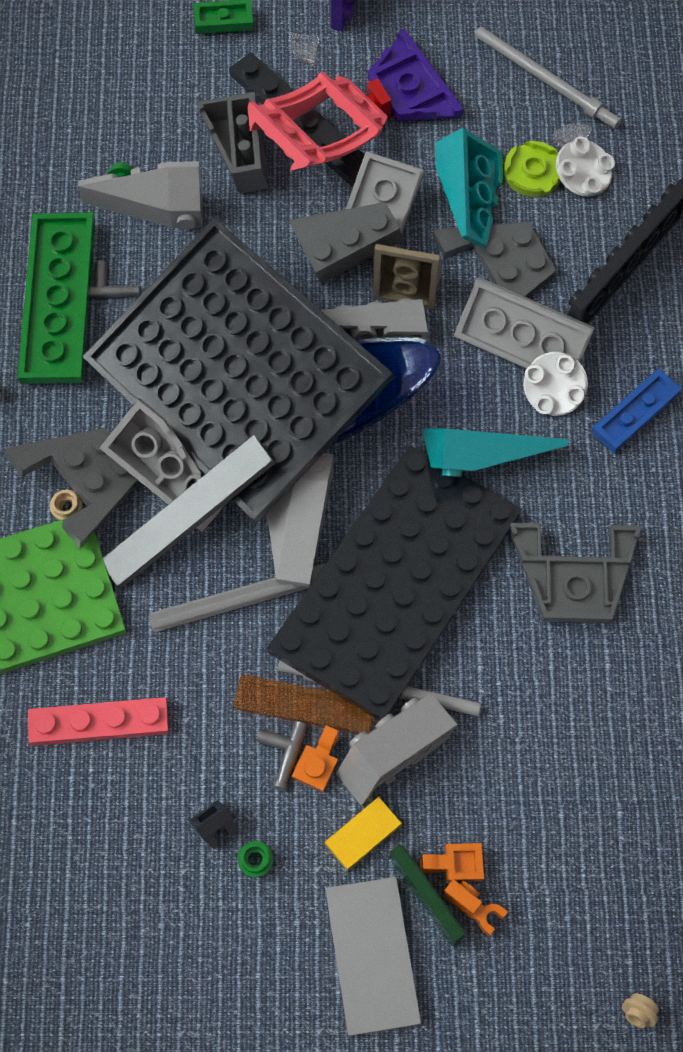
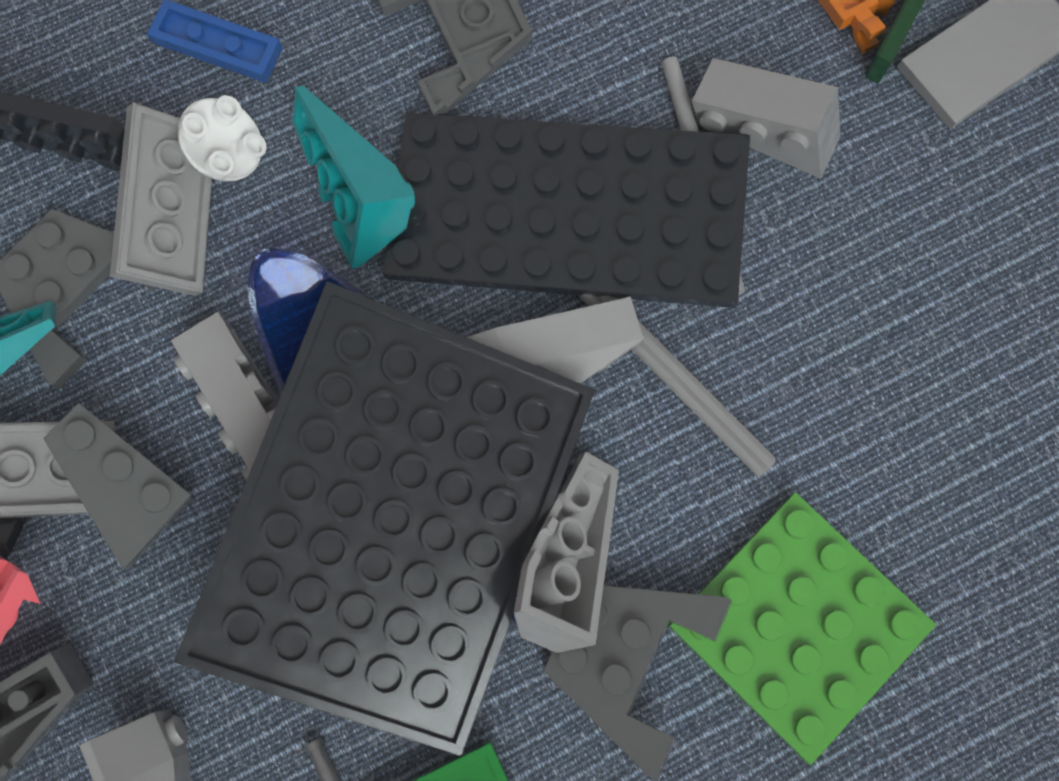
camera: 115 degrees left, 10 degrees up
(60, 499) = (688, 666): tan plate -> none
(98, 721) = (919, 467): coral plate -> none
(188, 511) = (617, 480): tile -> none
(211, 820) = (959, 273): black tile -> none
(255, 848) = (975, 202): green plate -> none
(291, 747) = (821, 238): flat silver piece -> none
(299, 704) = (772, 255): clear orange tile -> none
(317, 765) = (826, 195): orange plate -> none
(363, 834) = (877, 116): yellow tile -> none
(406, 274) = (140, 373): dark tan slope -> none

